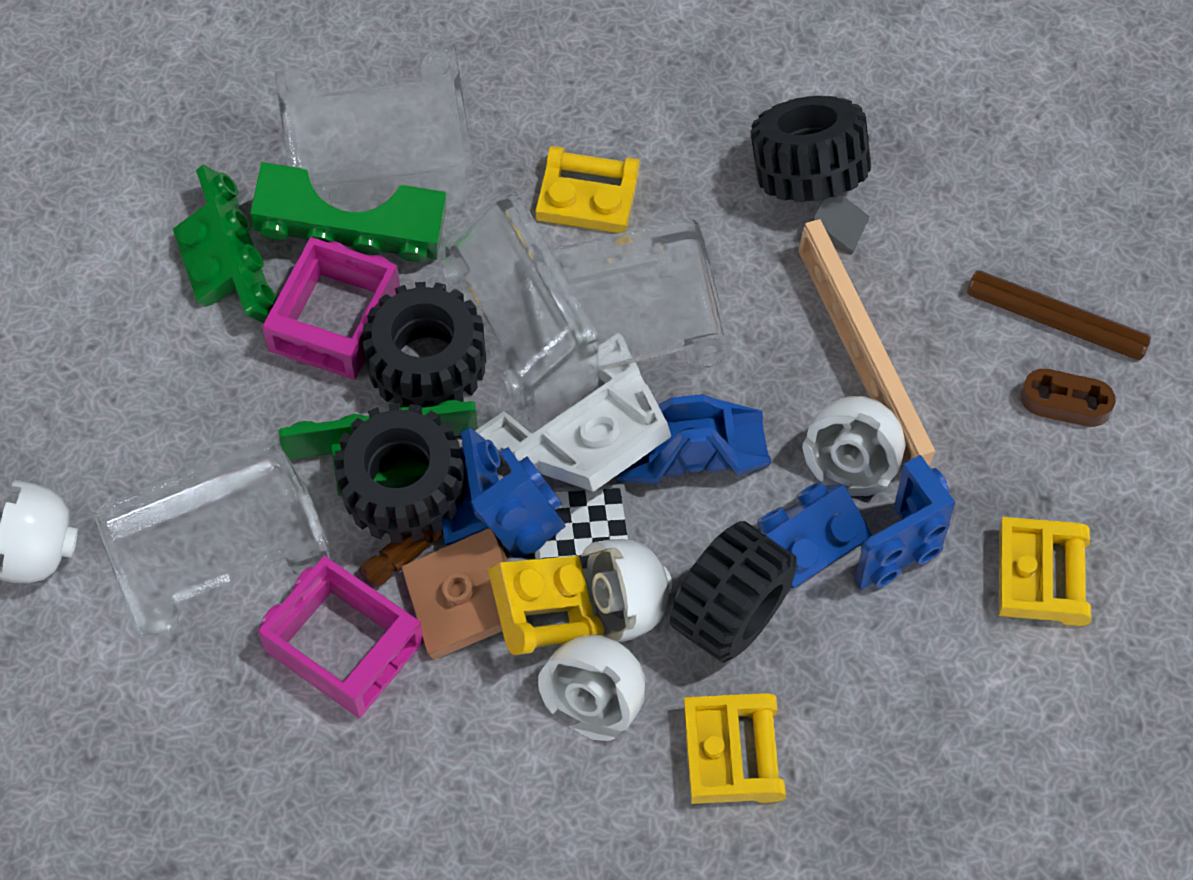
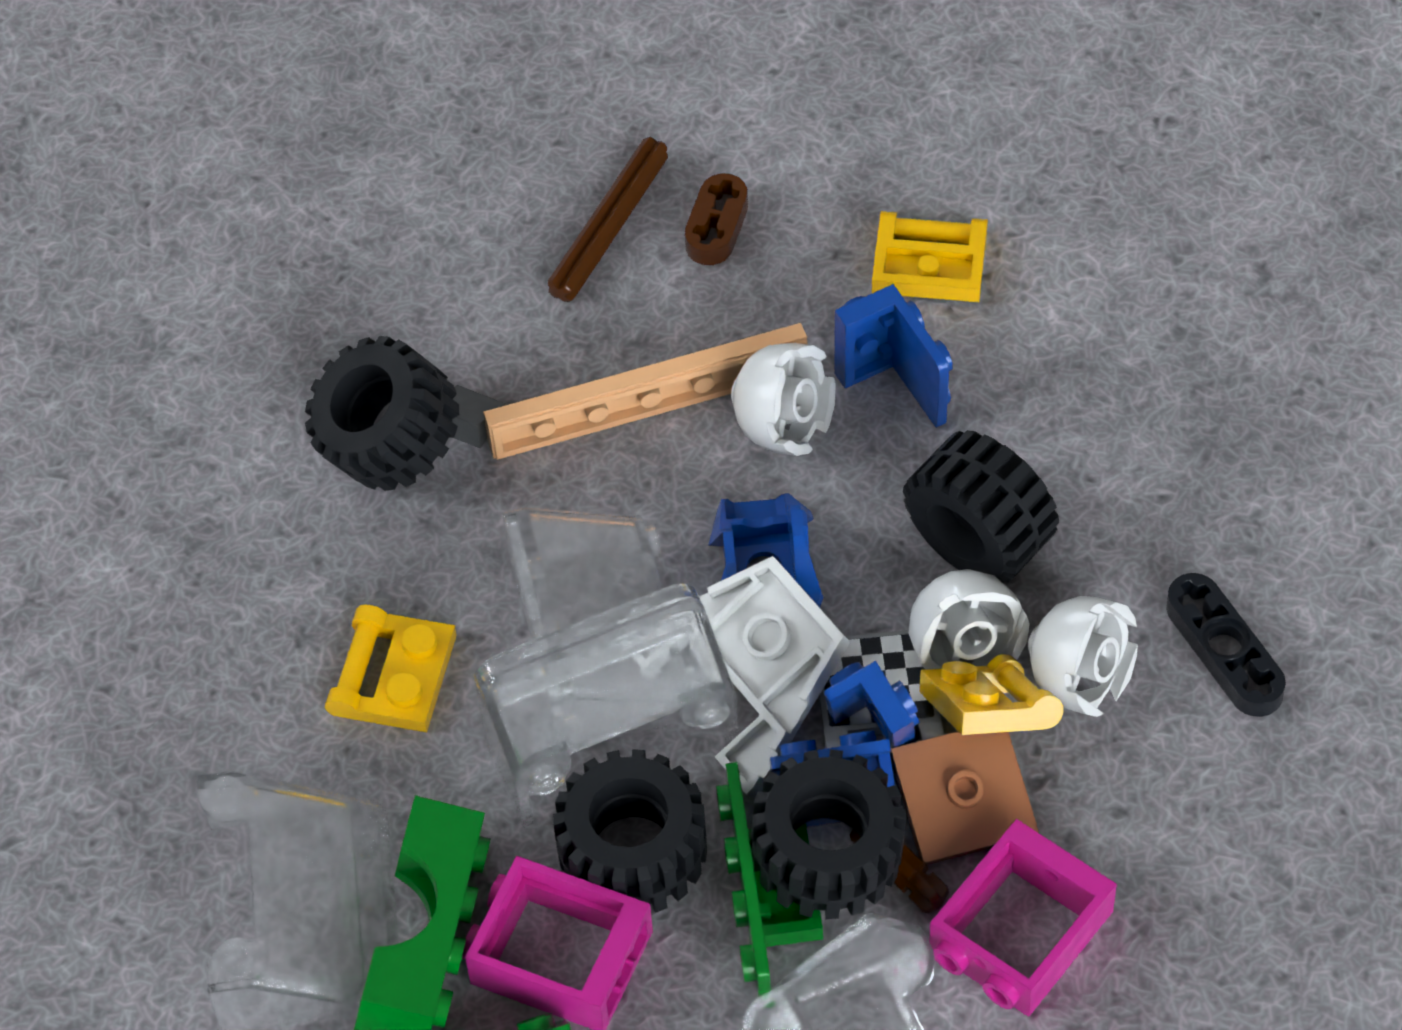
camera: 85 degrees left, 5 degrees down
(581, 822) = (1225, 620): none -> black beam
(716, 754) = (1143, 553): yellow plate -> none
(816, 528) = (873, 455): blue bracket -> none

